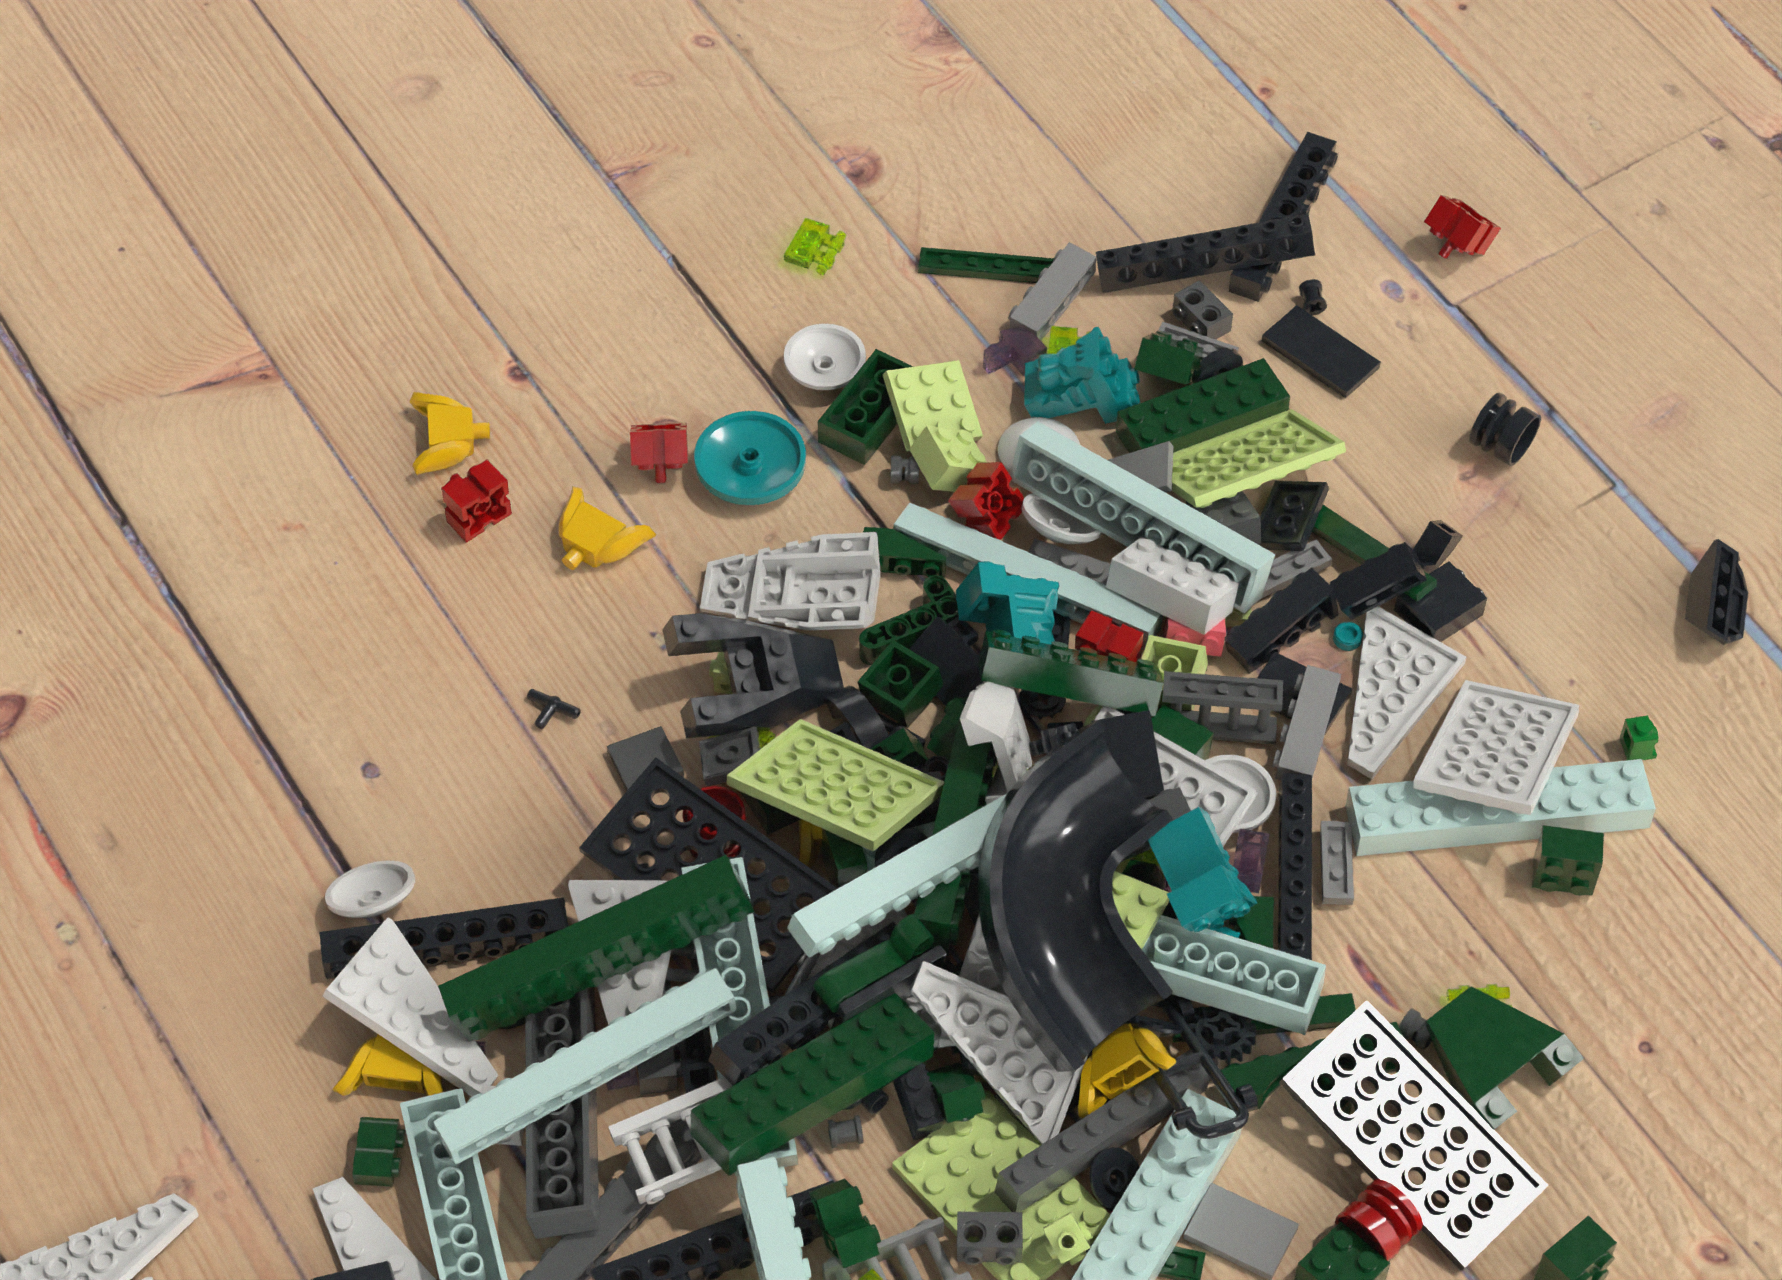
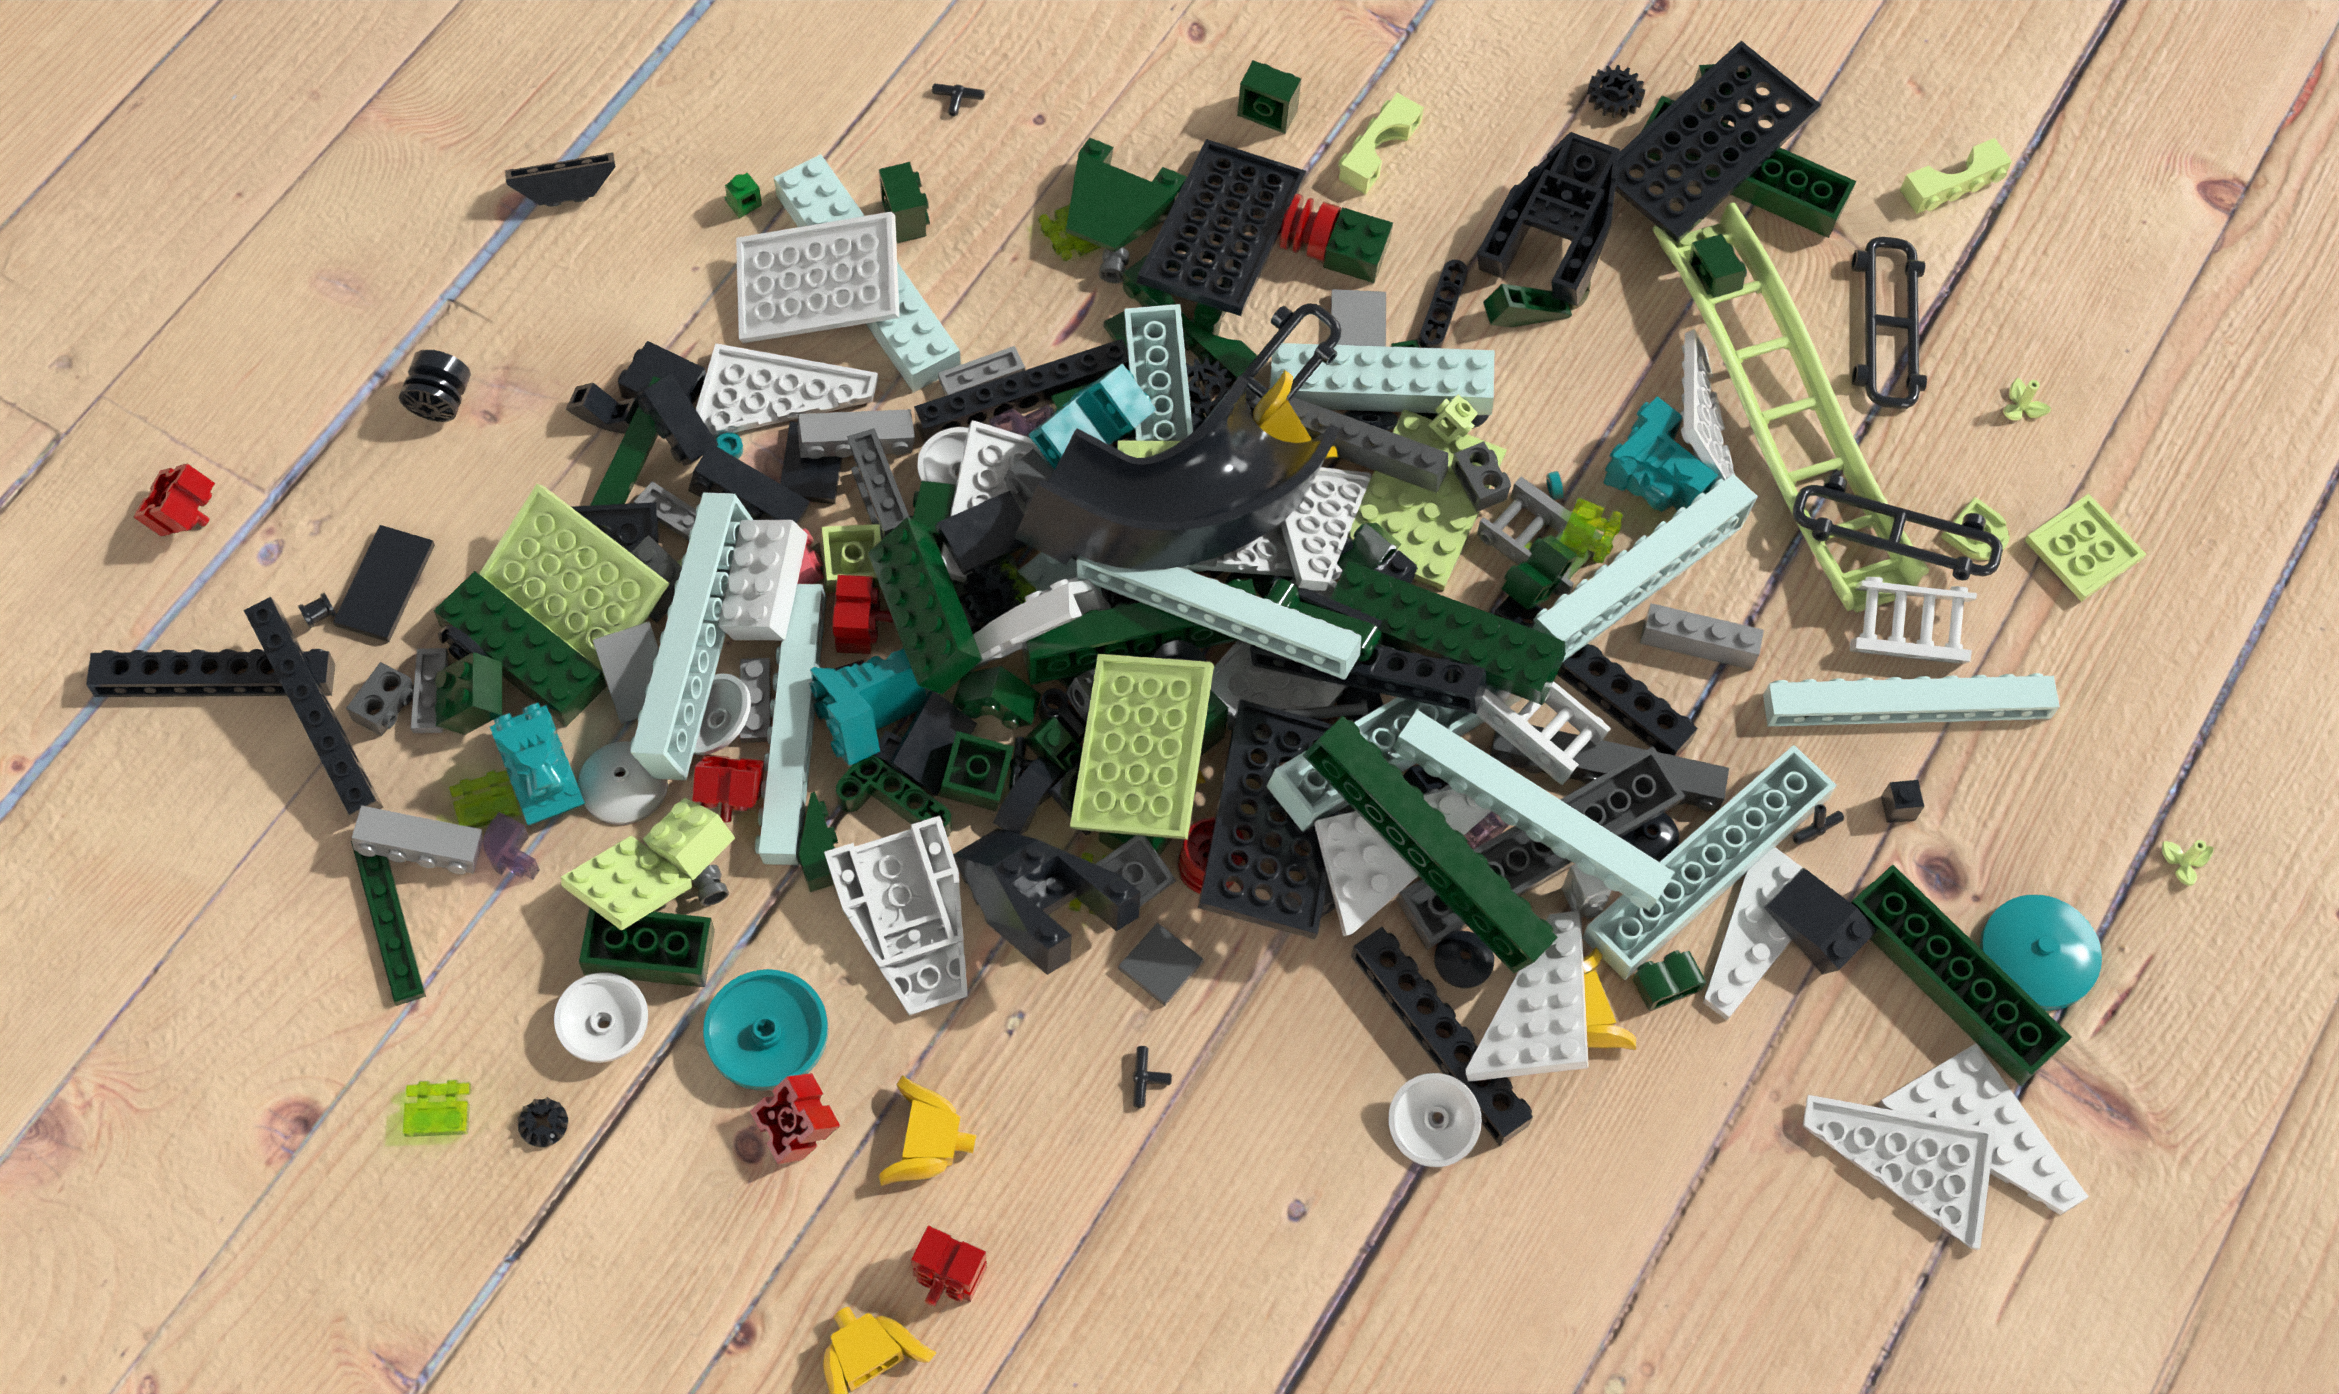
camera: 120 degrees left, 10 degrees up
(515, 1228) = (1657, 845): none -> black dish
(761, 314) = (543, 1135): none -> black gear
(1705, 980) = (957, 93): none -> black piece

